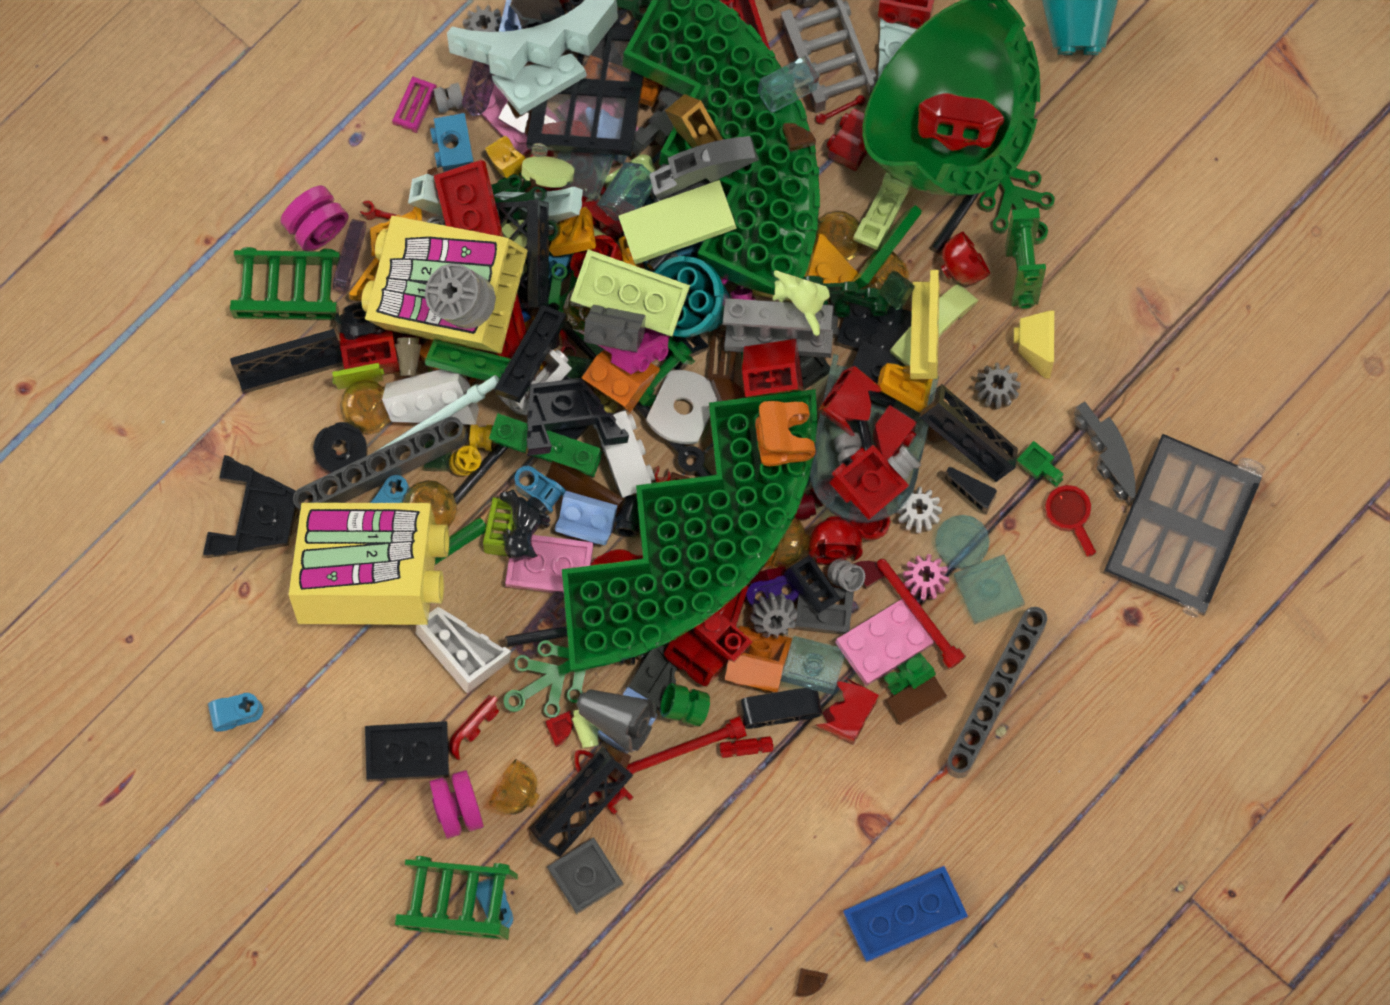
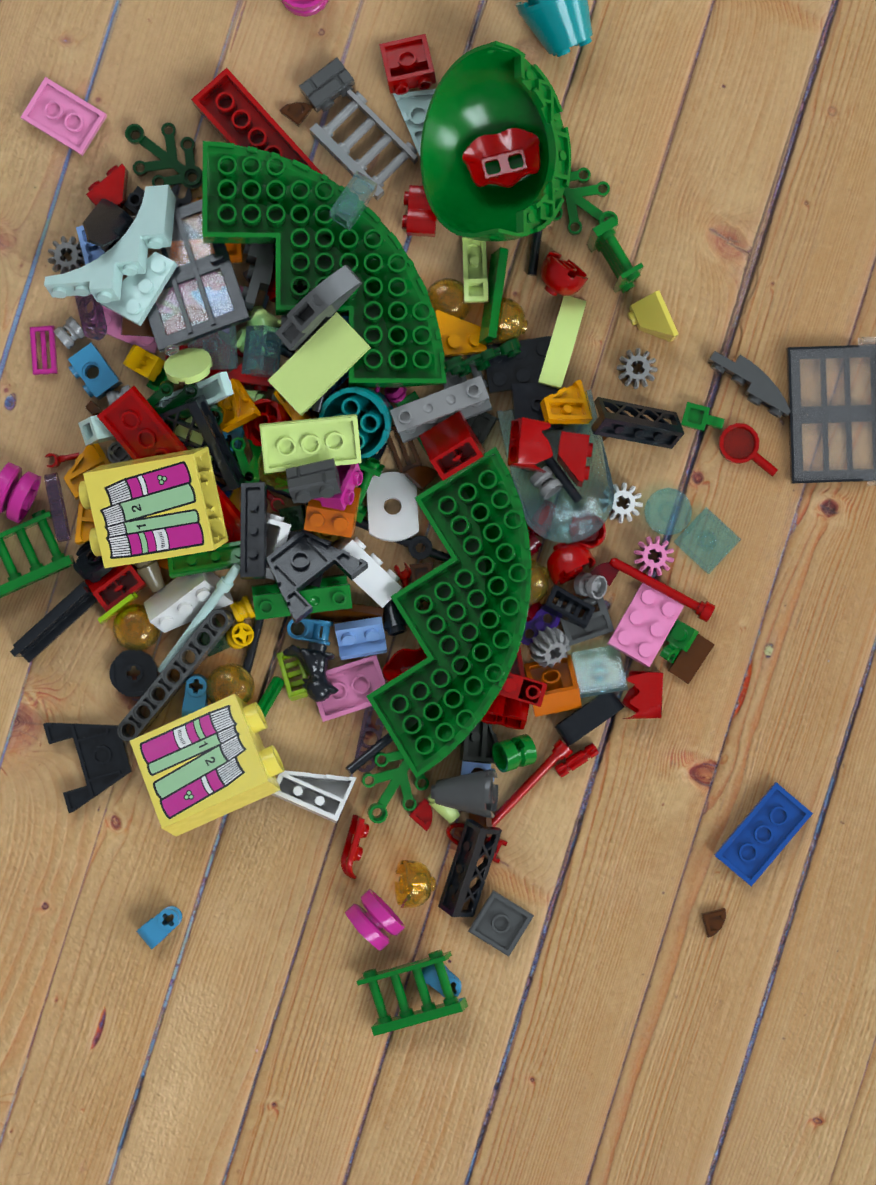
camera: 25 degrees left, 15 degrees up
(407, 751) = (312, 892): black plate -> none
(460, 296) = (191, 521): light grey wheel -> none
(692, 121) = (292, 273): pearl gold slope -> none
(775, 440) = (483, 506): orange piece -> none
(798, 137) = (382, 241): reddish brown tile -> none
(804, 294) = (456, 381): yellowish green animal -> none
(821, 118) = (385, 202): red hinge -> none
(868, 481) = (577, 507): red plate -> none
(896, 290) = (522, 331): clear green tile -> none
(904, 462) = (598, 477): light grey wheel -> none
(925, 328) = (560, 353): light yellow fence -> none
(974, 490) = (663, 466): black slope -> none
(998, 679) = (758, 634): dark grey beam -> none

